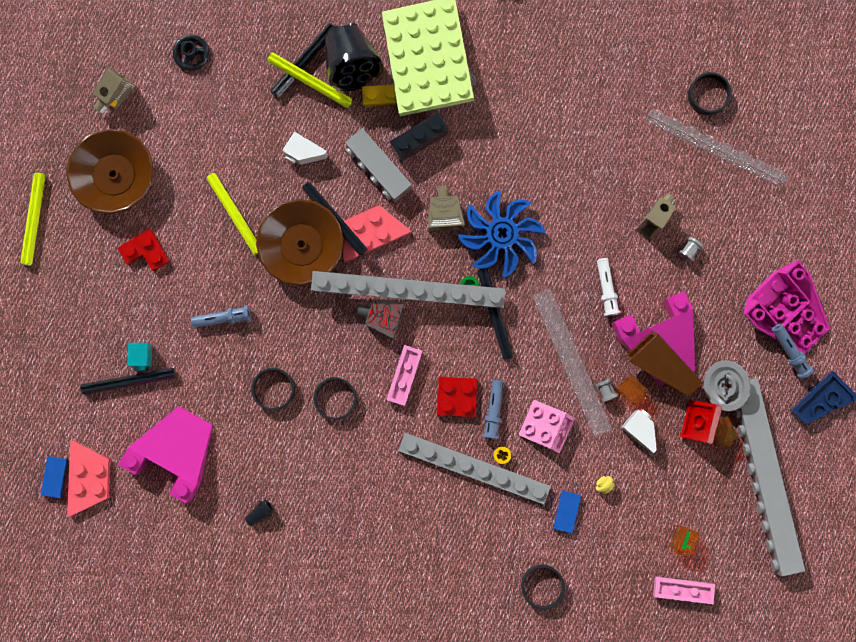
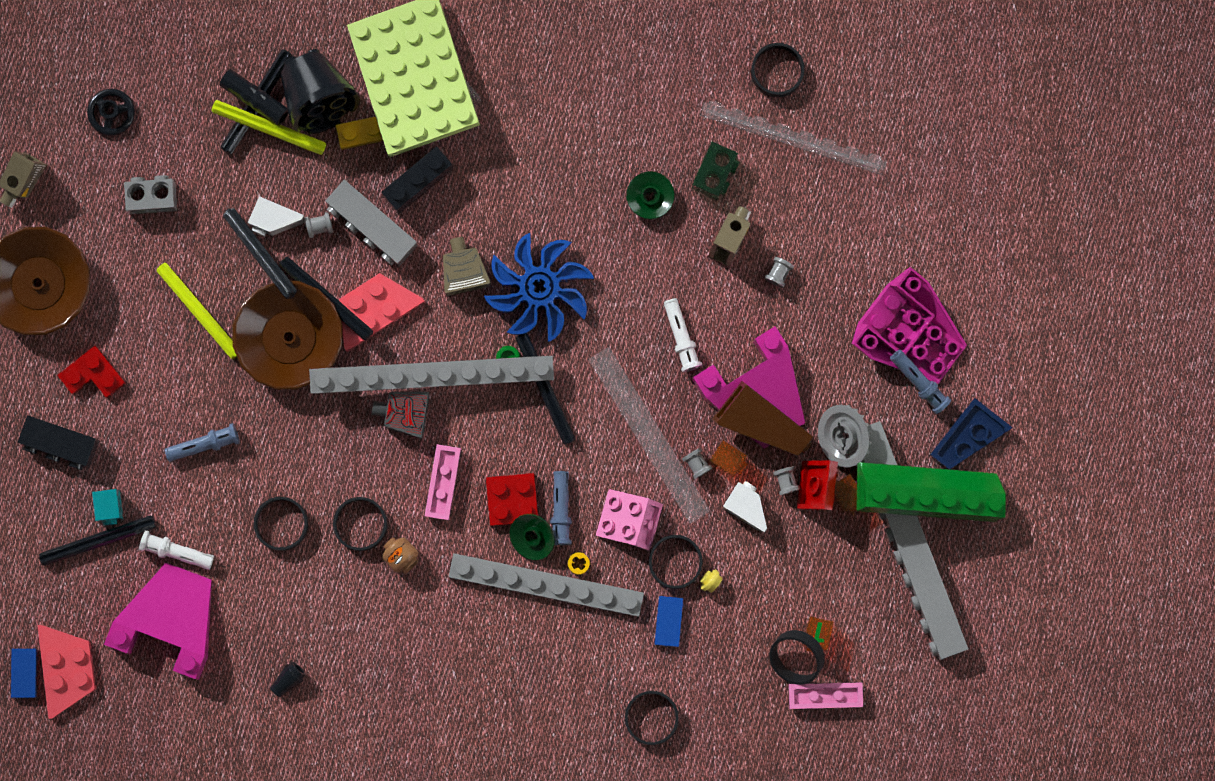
camera: 10 degrees left, 0 degrees up
(109, 300) = (58, 442): none -> black brick
(179, 394) = (165, 547): none -> white pin
(209, 124) = (150, 202): none -> light grey brick
(288, 176) = (260, 253): none -> black axle
(301, 55) = (254, 97): none -> black axle
(337, 161) = (319, 225): none -> light grey bush
(363, 428) = (400, 555): none -> medium nougat head
(464, 433) = (526, 542): none -> dark green dish
(597, 471) = (679, 537): none -> black tyre
(600, 166) = (650, 183): none -> dark green dish
(649, 162) = (711, 169): none -> clear green brick
(675, 414) = (786, 480): none -> light grey bush
(677, 544) = (811, 643): none -> black tyre
(790, 441) = (930, 492): none -> green slope

